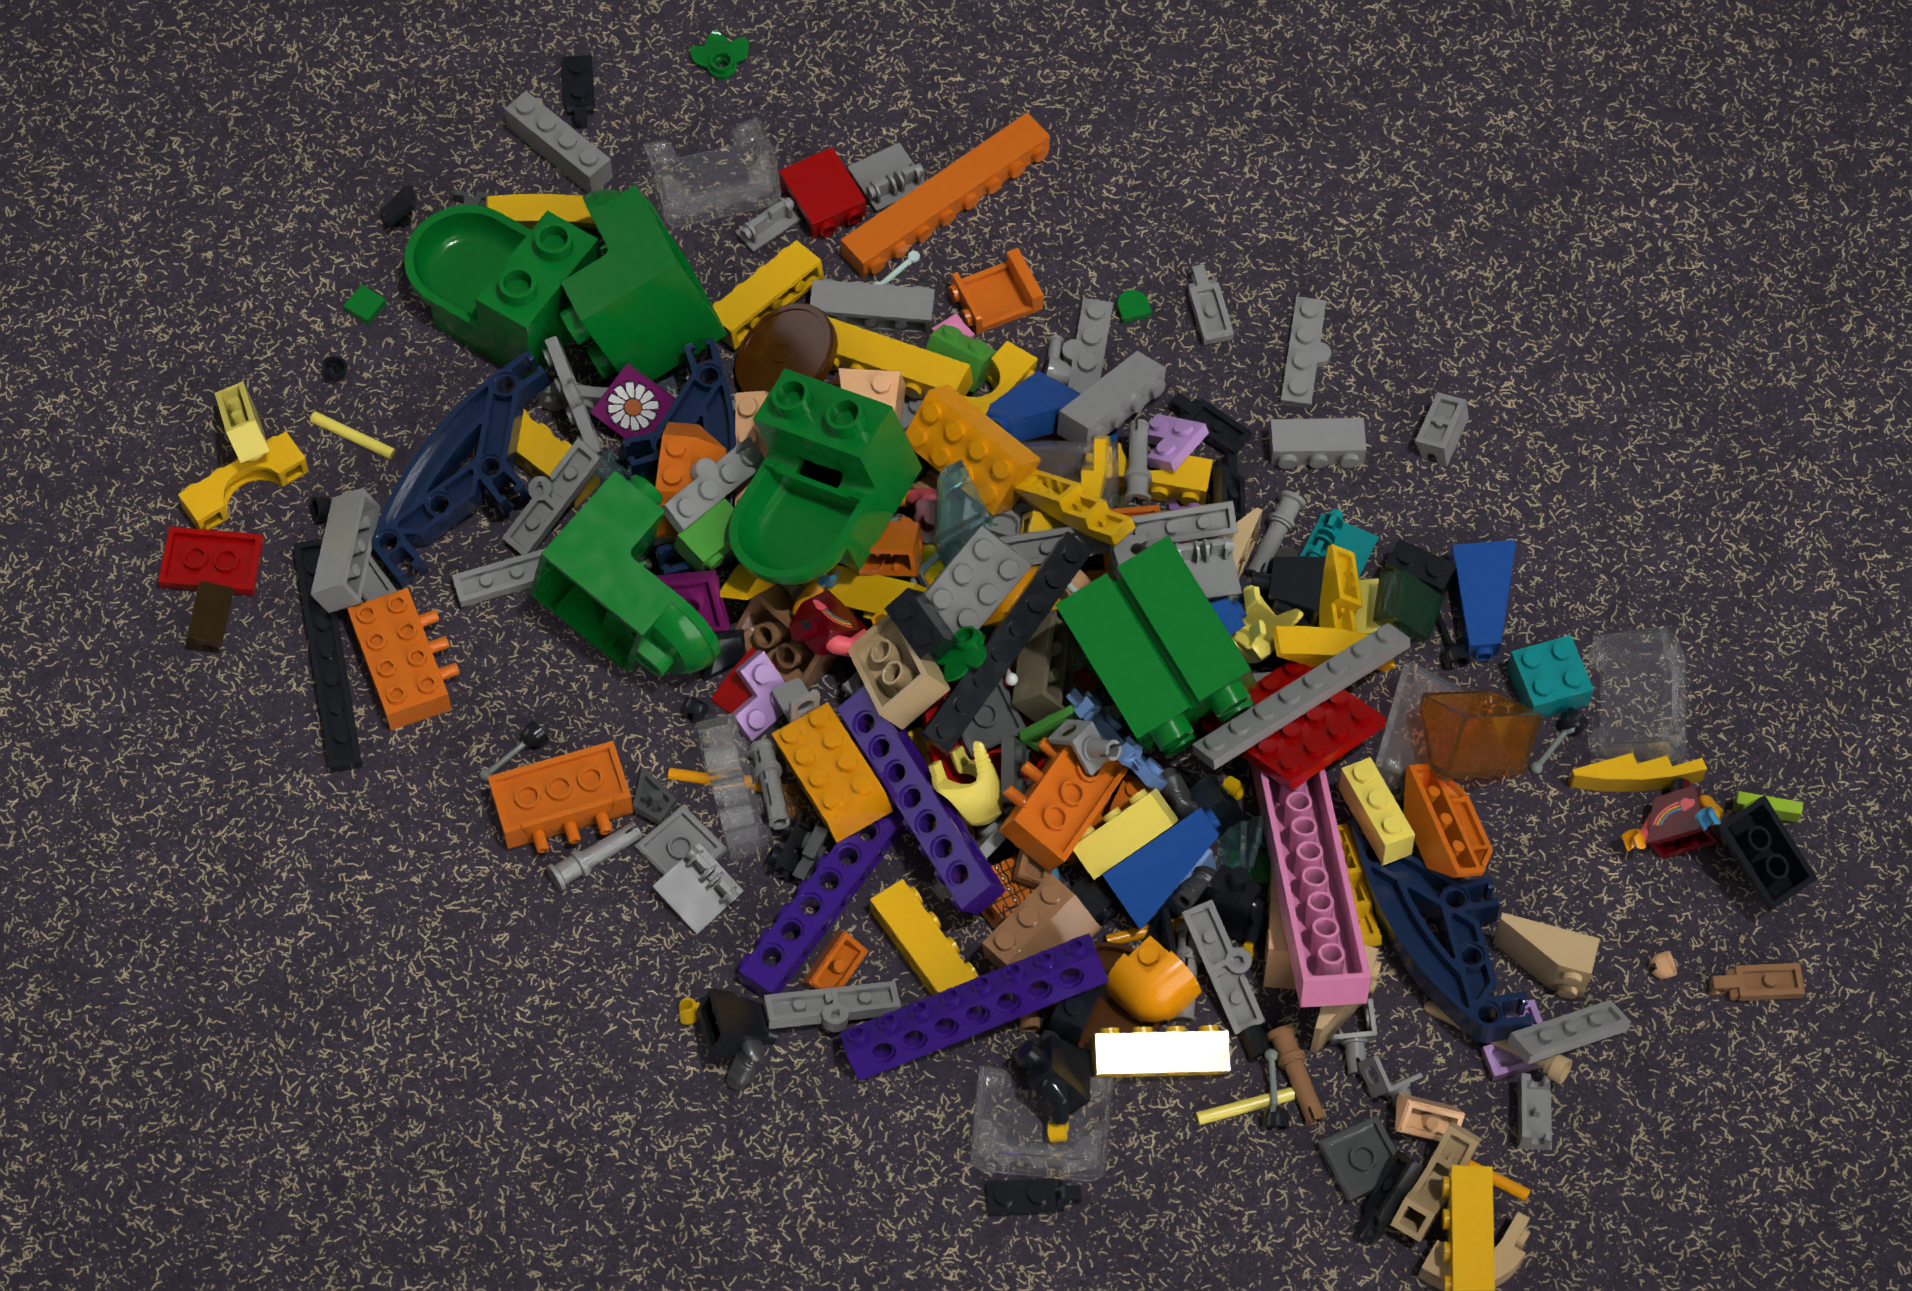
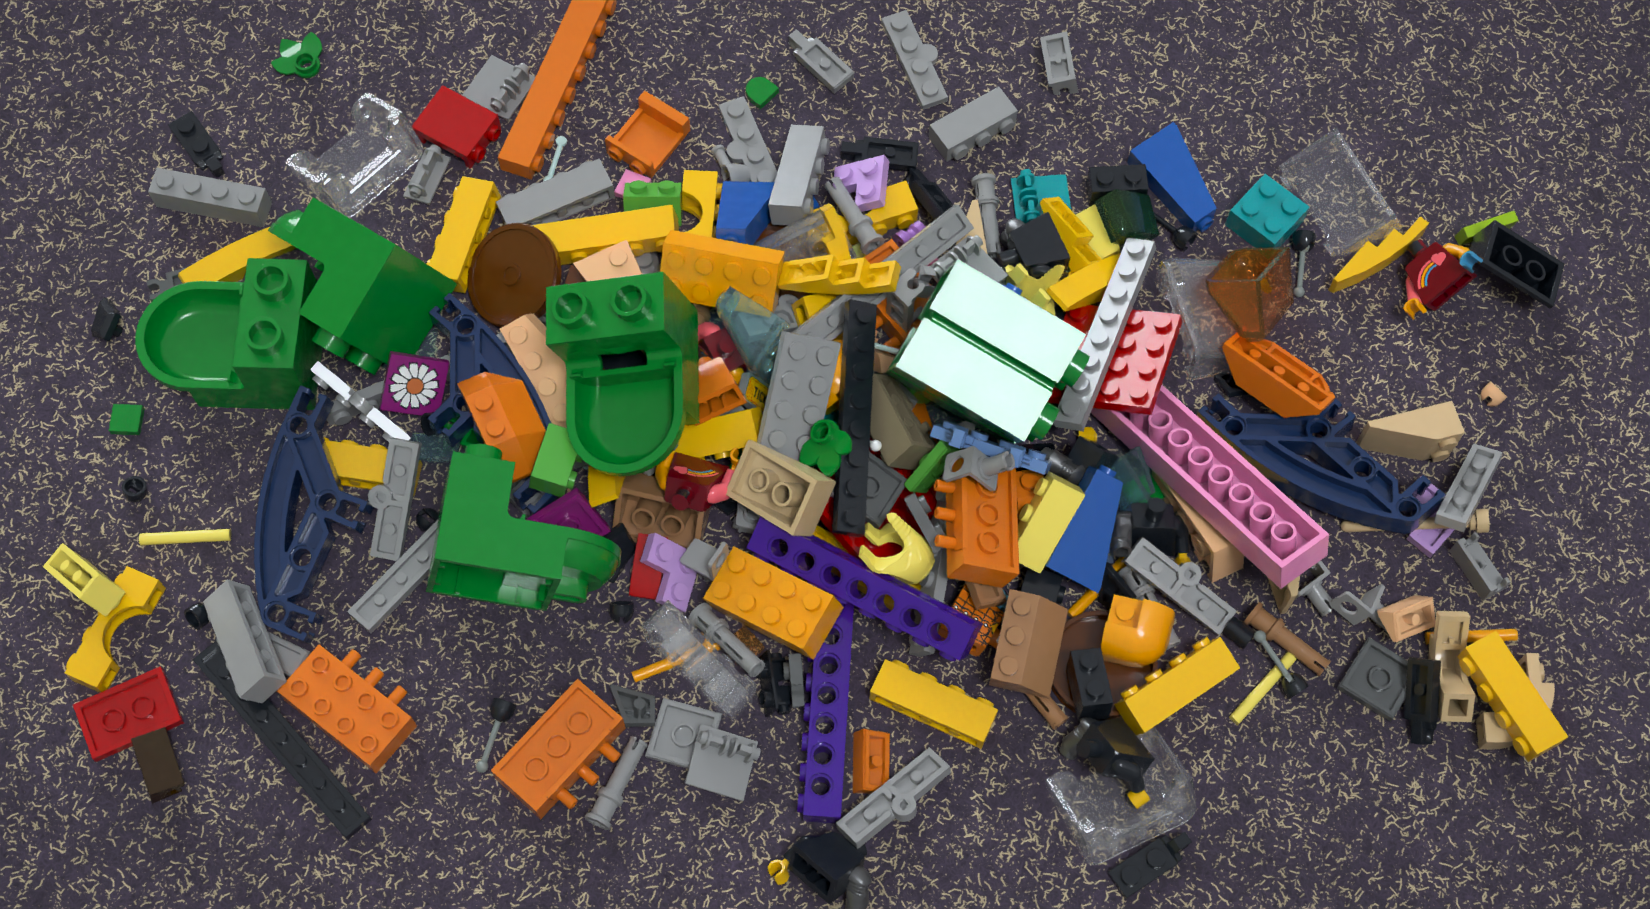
camera: 30 degrees left, 5 degrees up
(712, 483) = (532, 416): light grey hinge -> none
(921, 625) = (783, 441): black brick -> none
(974, 1007) = (1015, 735): dark purple brick -> none
(1376, 811) = (1218, 393): light yellow brick -> none
(1760, 982) = (1570, 367): medium nougat hinge -> none

